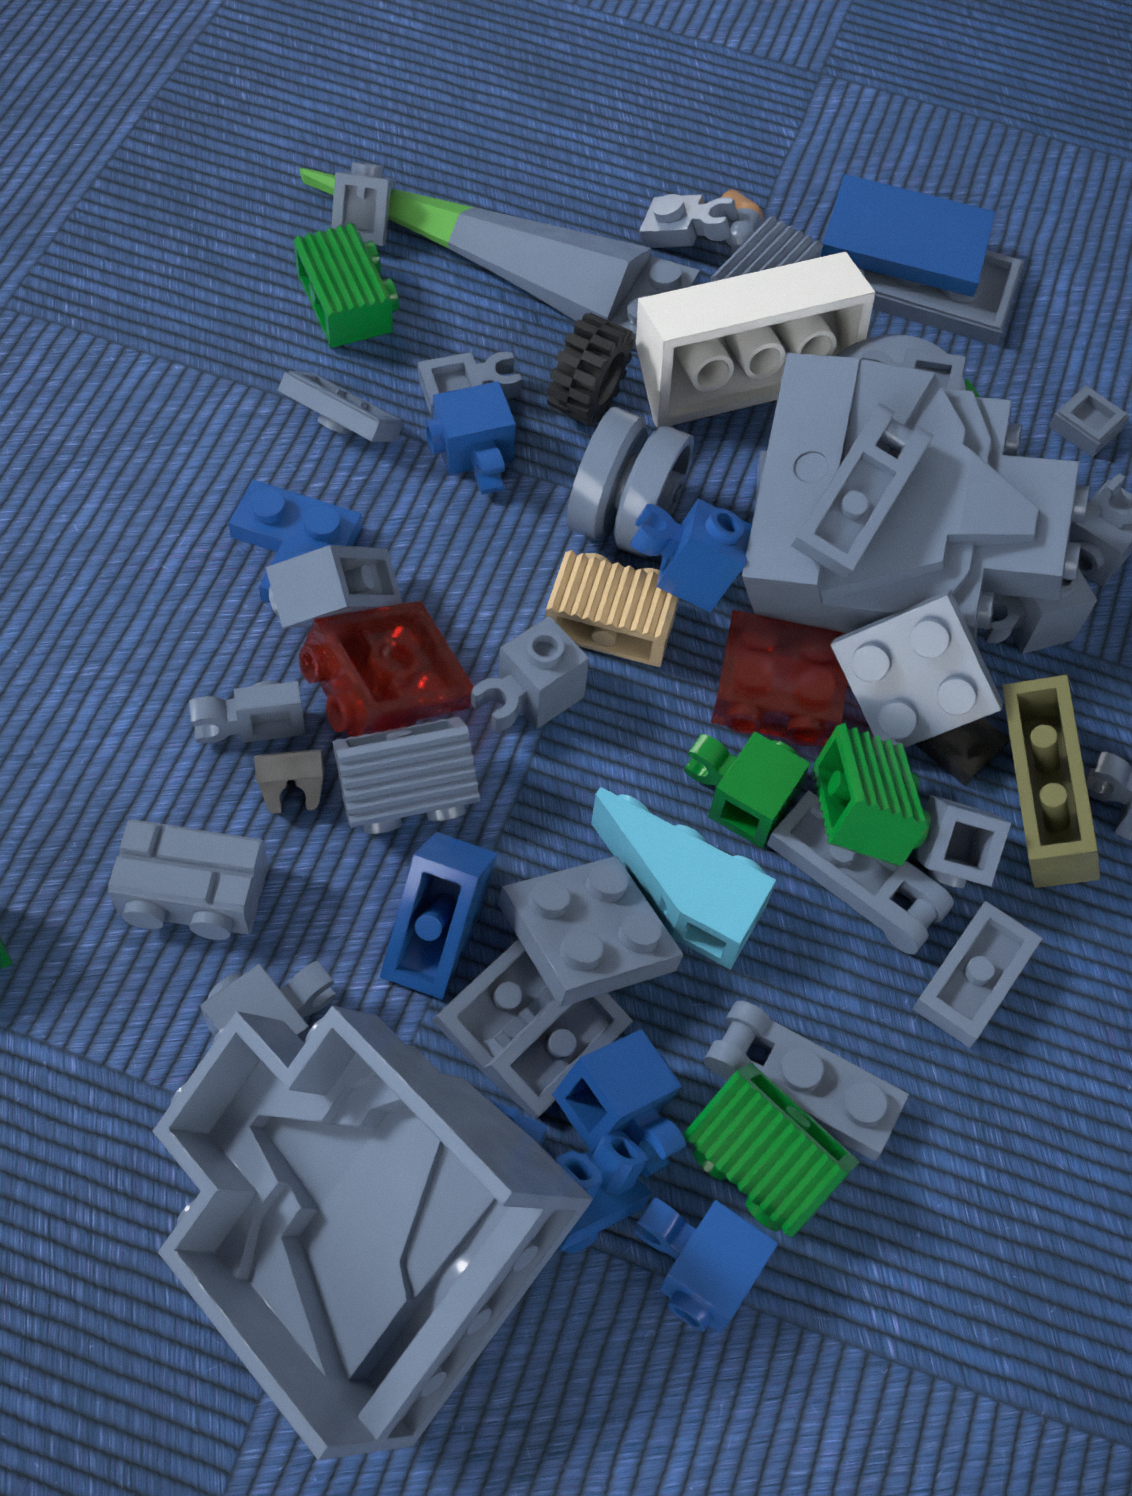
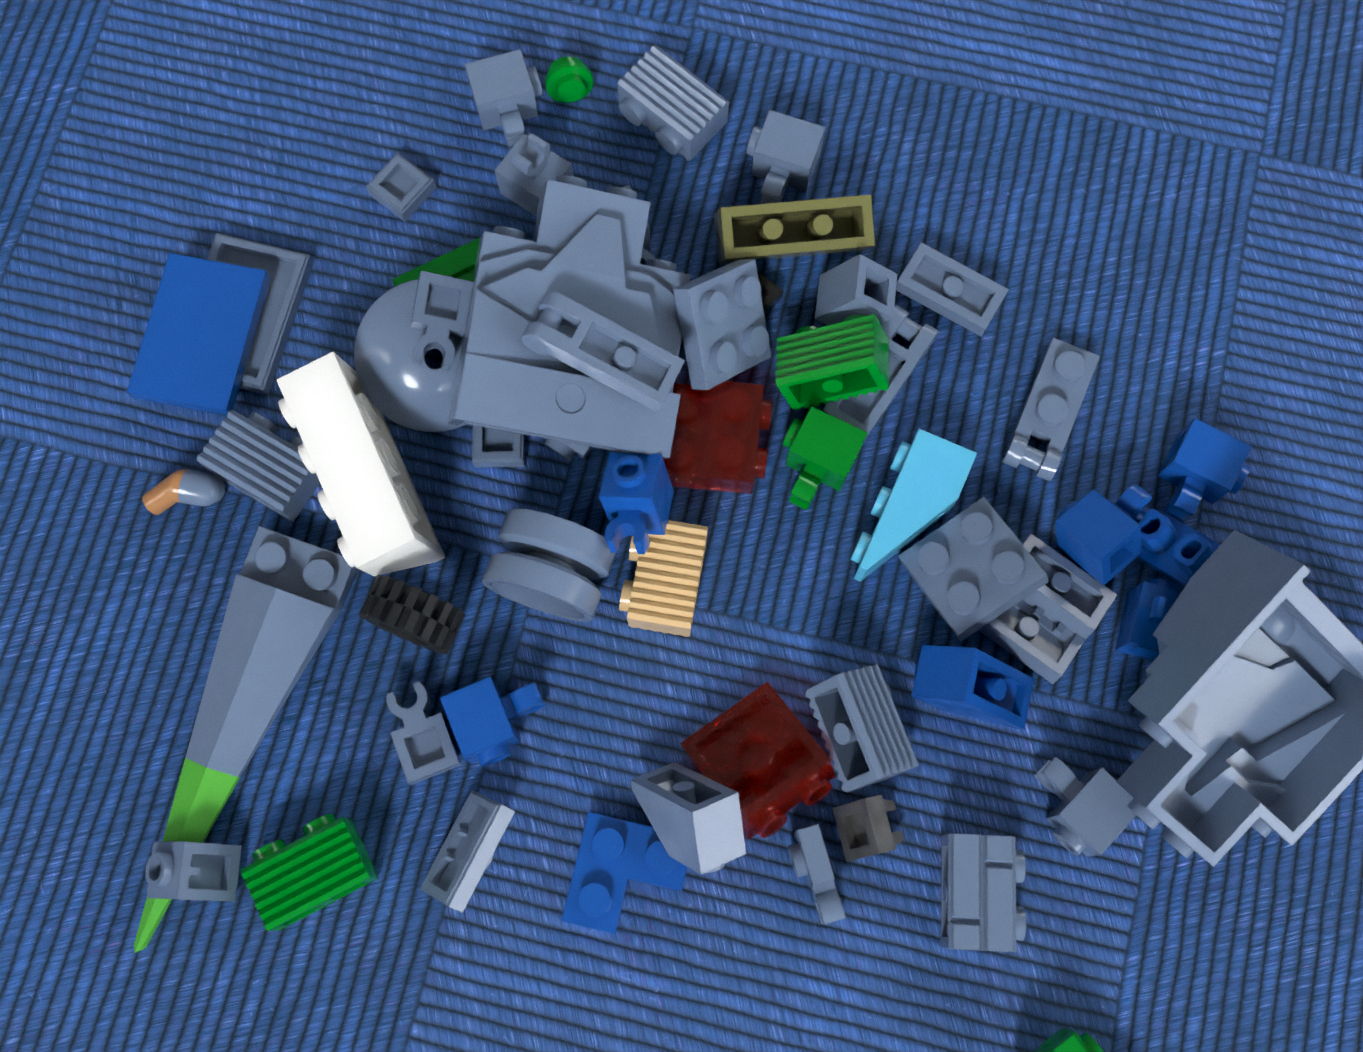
camera: 90 degrees left, 15 degrees up
(538, 675) = (747, 631): sand blue brick -> none
(680, 219) = (188, 551): sand blue plate -> none
(769, 1151) = (1120, 428): green brick -> none

